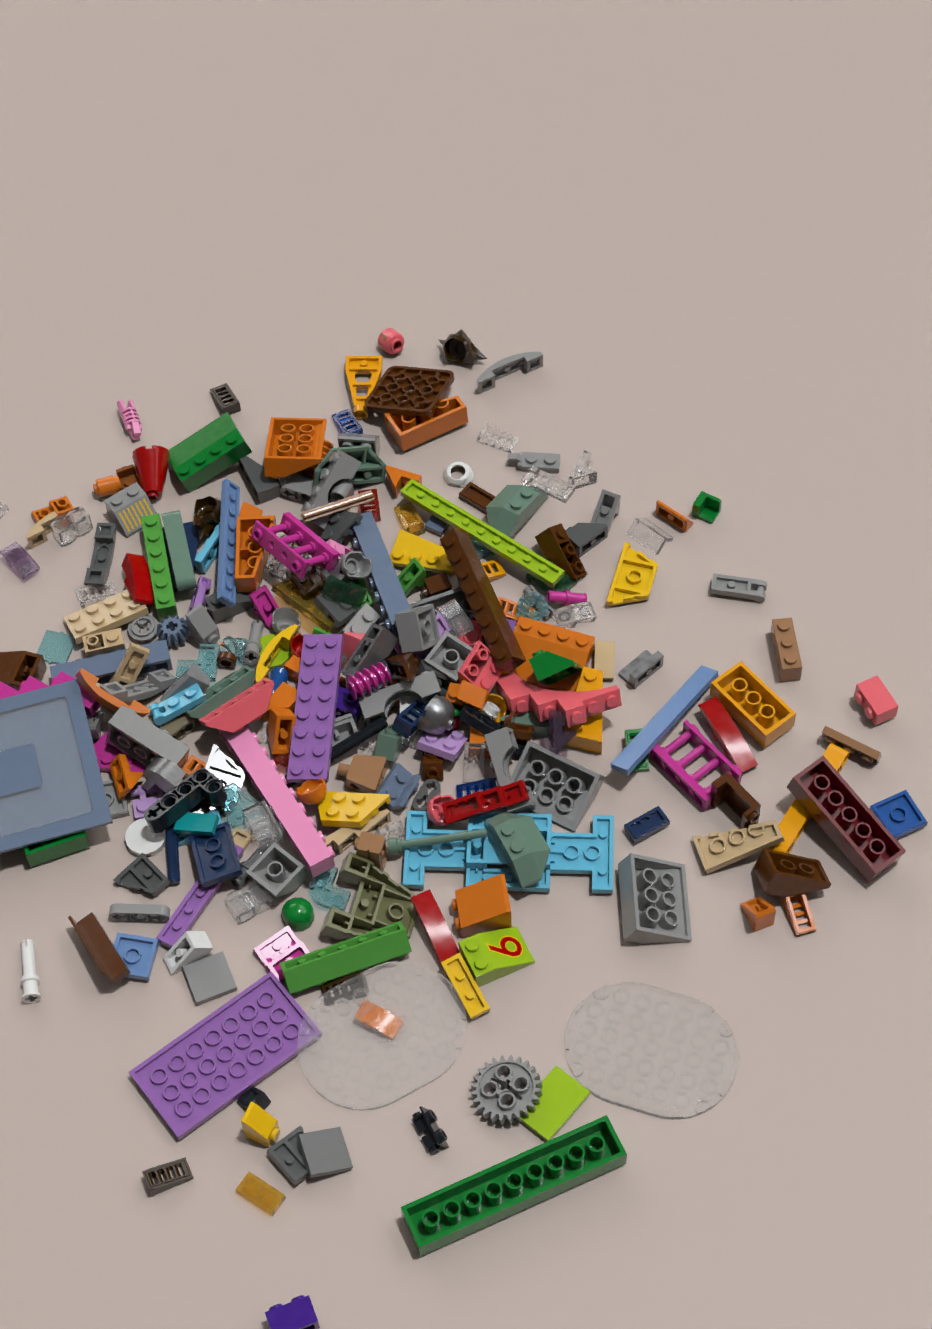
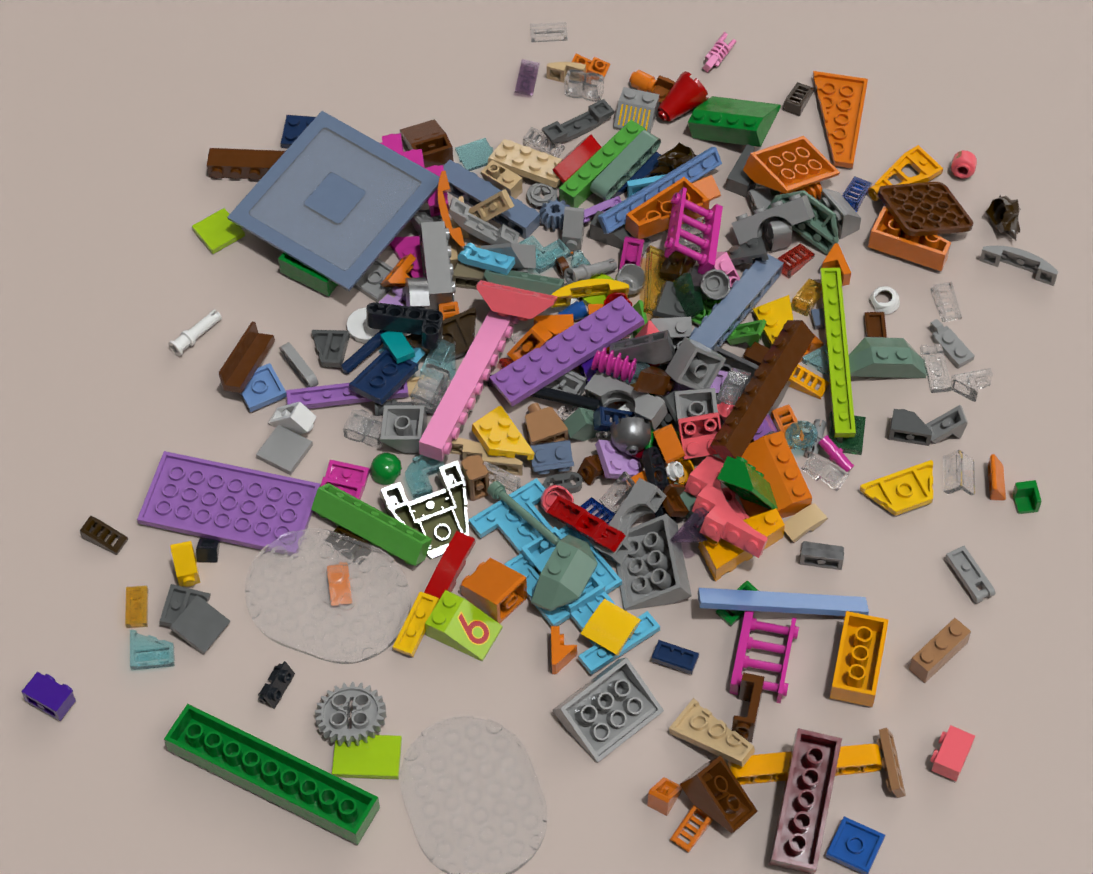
camera: 50 degrees right, 0 degrees up
(264, 378) = (841, 107): none -> orange wing
(312, 791) = (492, 401): orange hair -> none
(315, 1210) = (150, 652): none -> clear light blue wing
(337, 506) = (762, 236): medium nougat axle -> none
(559, 549) = (876, 420): reddish brown slope -> none
(575, 902) = (561, 653): none -> orange slope
(589, 848) = (610, 626): none -> yellow slope
(728, 734) = (814, 661): red slope -> none

